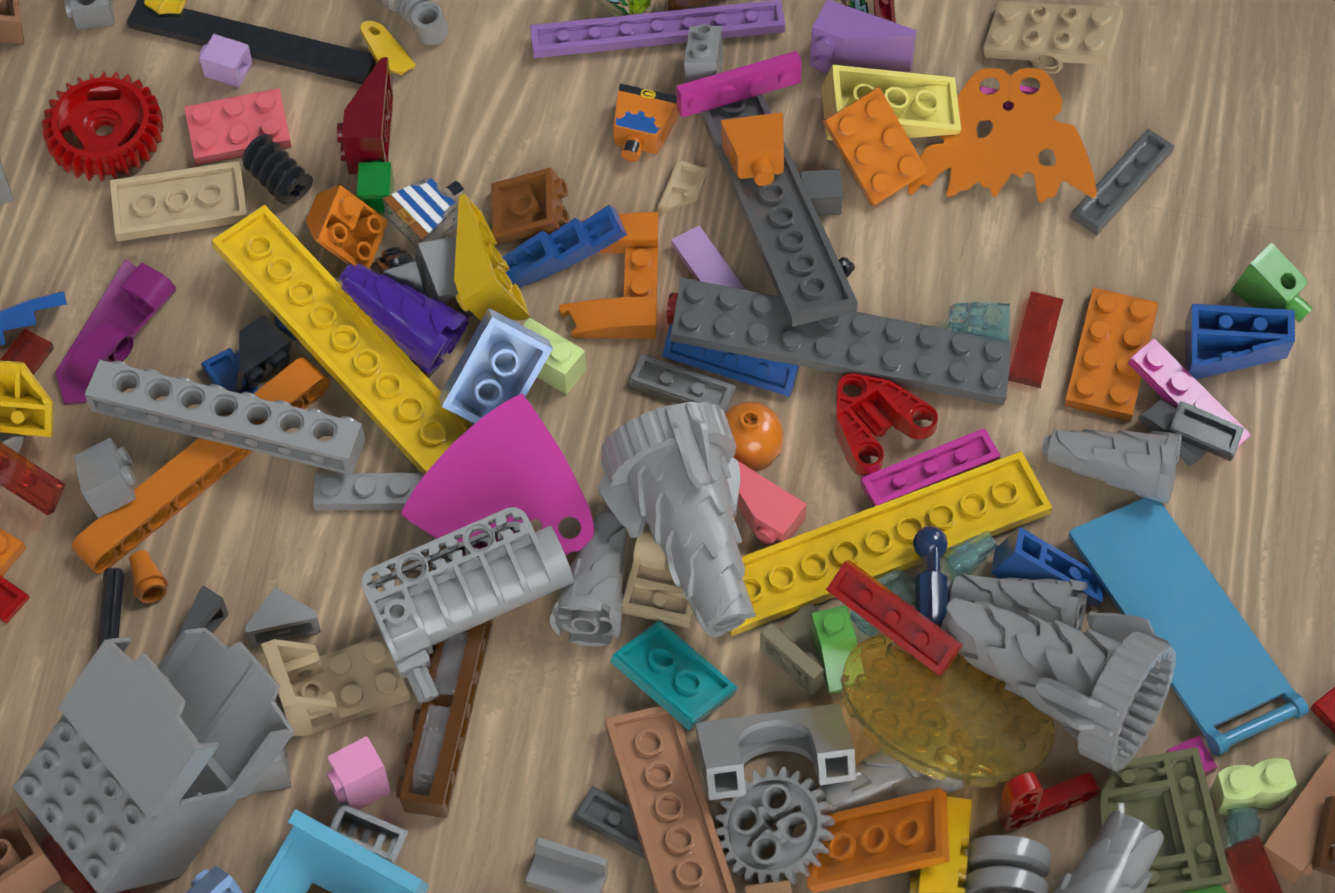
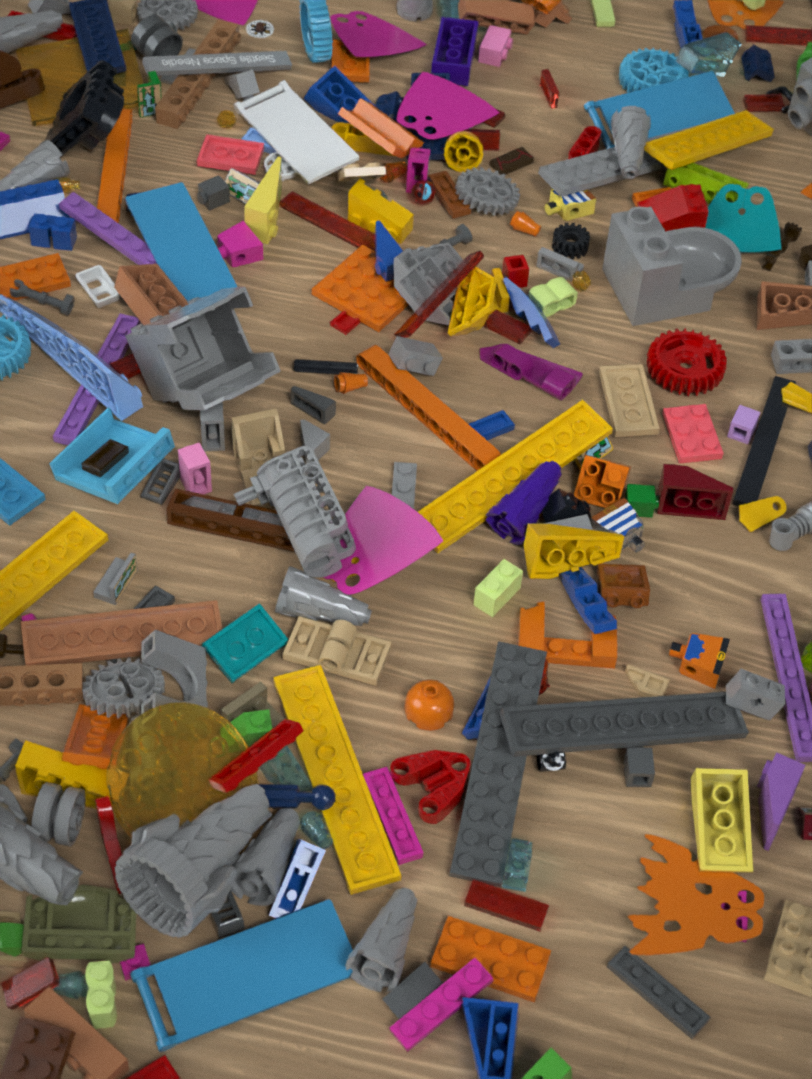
camera: 90 degrees right, 10 degrees down
(205, 421) = (450, 410): light grey brick -> none
(258, 352) = (503, 430): black slope -> none
(276, 170) = (652, 446): black piece -> none
(494, 367) = (474, 542): light blue brick -> none
(679, 383) = (474, 671): light grey tile -> none
(683, 482) = (365, 630): light grey cone -> none
(704, 259) = (578, 690): lavender tile -> none
(738, 84) = (730, 712): dark pink plate -> none
(755, 146) = (664, 710): orange torso -> none
(767, 508) = (371, 704): coral slope -> none
(875, 146) = (676, 799): orange plate -> none
(1206, 430) = (405, 1004): tile -> none

